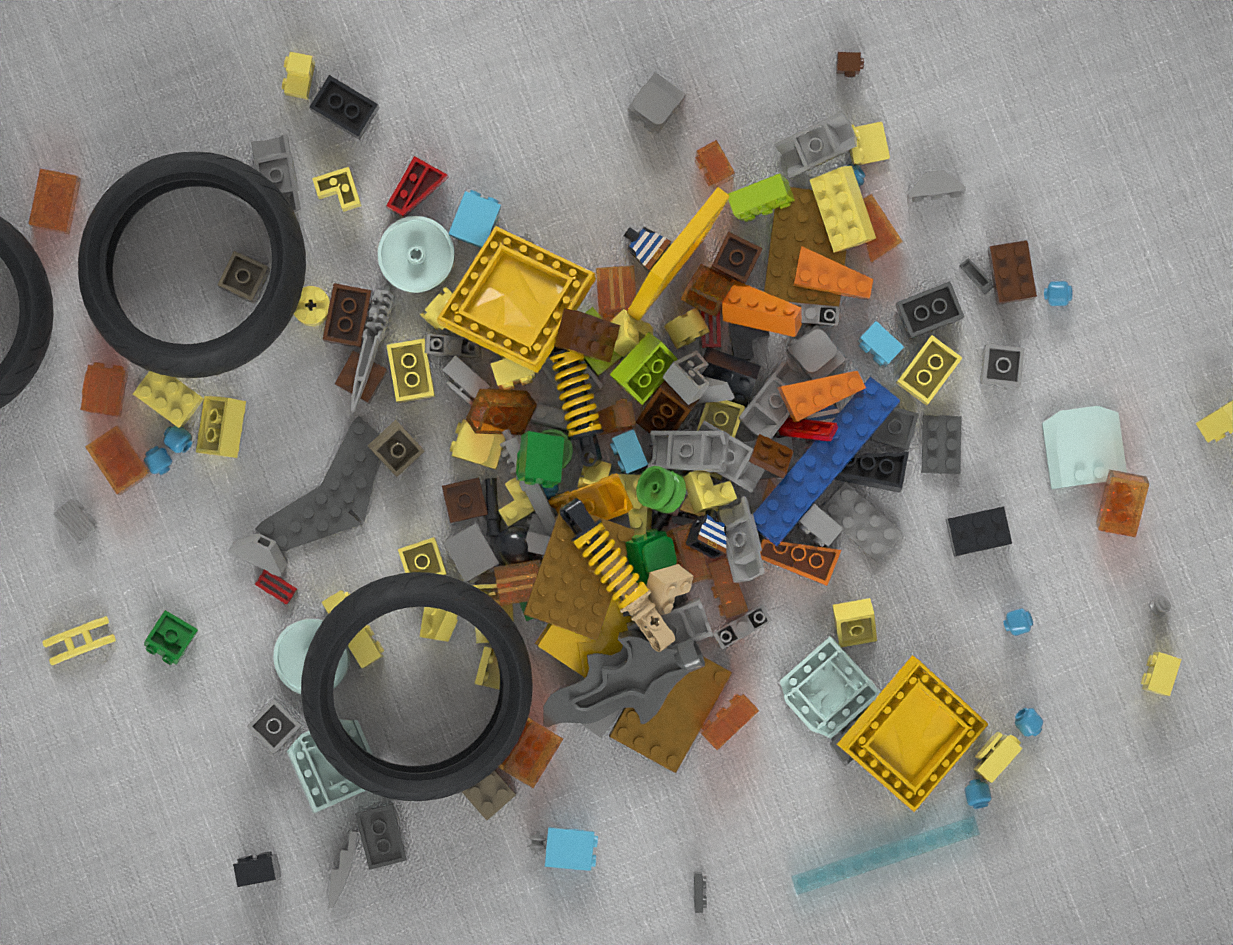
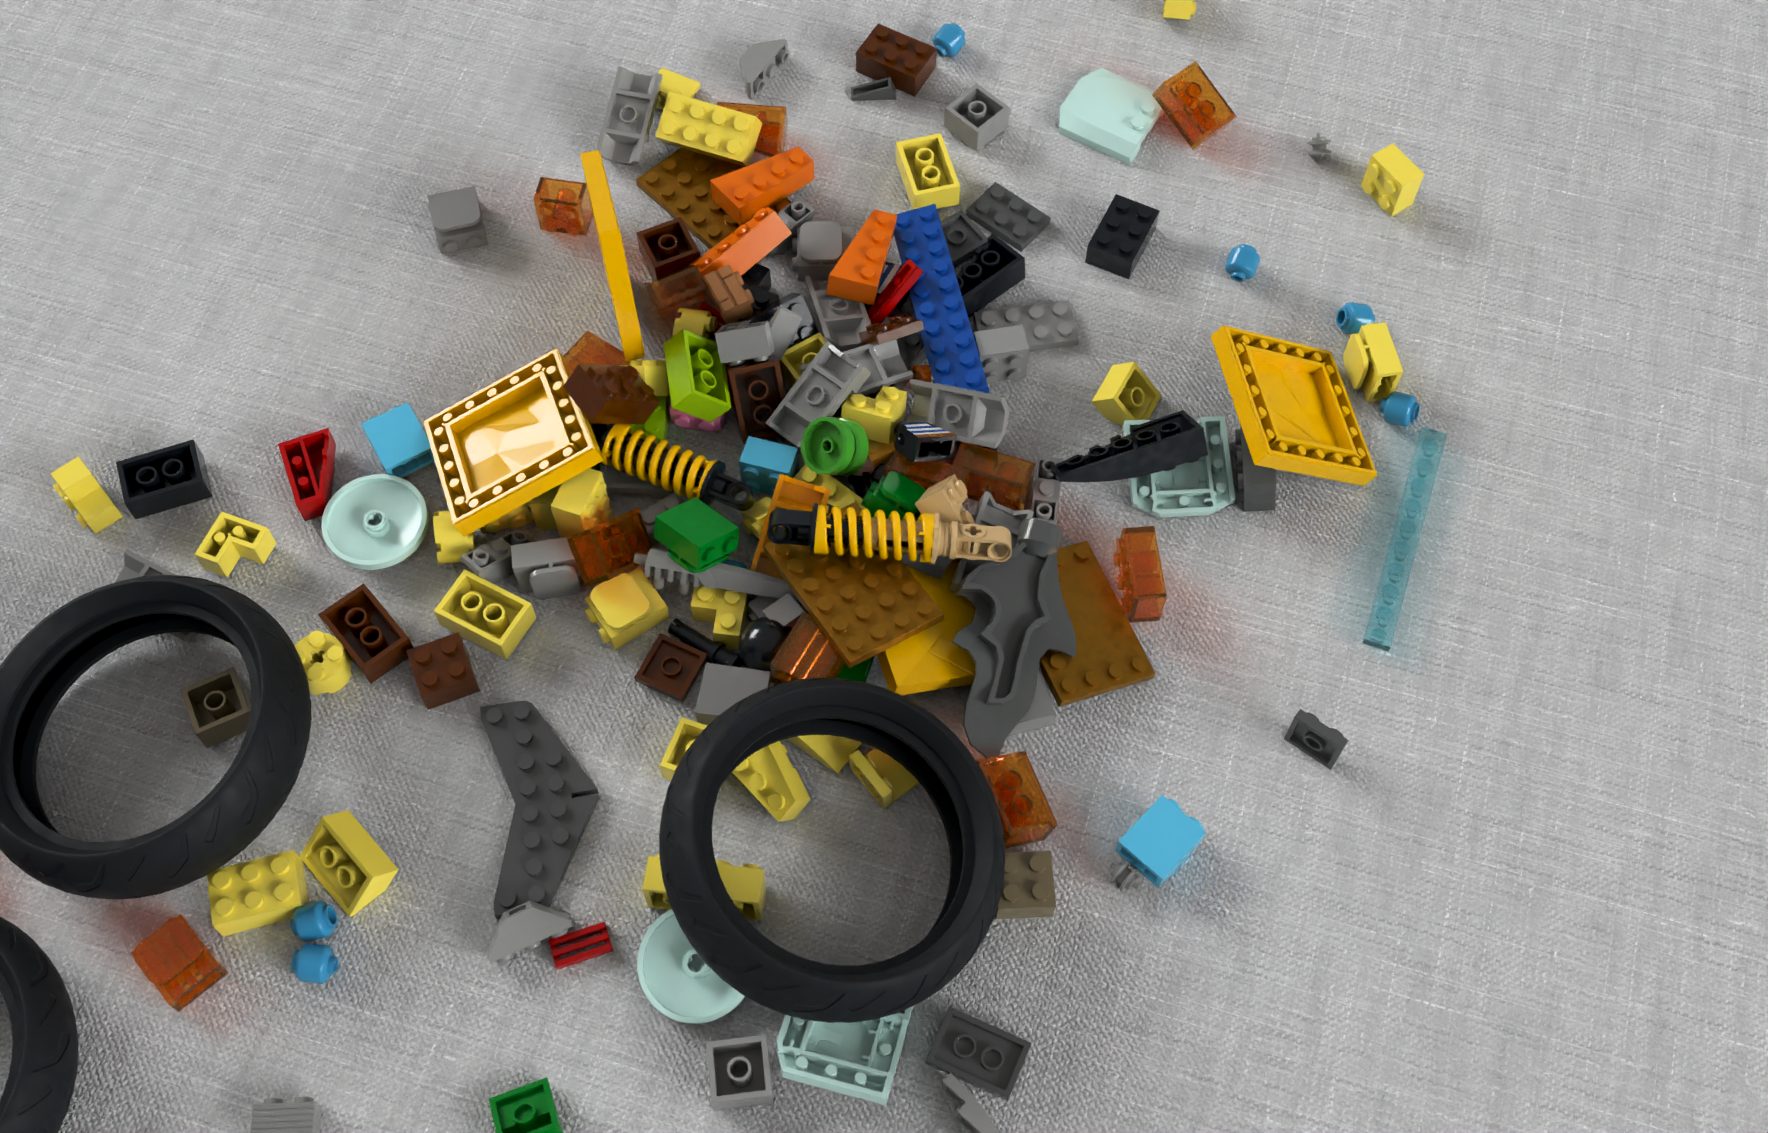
camera: 50 degrees left, 25 degrees down
(118, 460) = (268, 1008): clear orange brick -> none
(375, 332) = (410, 617): light grey piece -> none
(396, 448) = (550, 687): dark tan brick -> none
(617, 417) = (725, 439): clear orange wedge -> none
(646, 246) = (580, 315): torso -> none
(721, 334) = (728, 294): none -> medium nougat brick
(761, 198) = (634, 184): lime brick -> none
(804, 560) = (1032, 388): orange wedge -> none
(812, 664) = (1146, 450): none -> black wedge
(849, 63) = (584, 56): reddish brown brick -> none
(880, 344) = (865, 189): medium azure brick -> none
(929, 310) = (870, 137): dark grey brick -> none

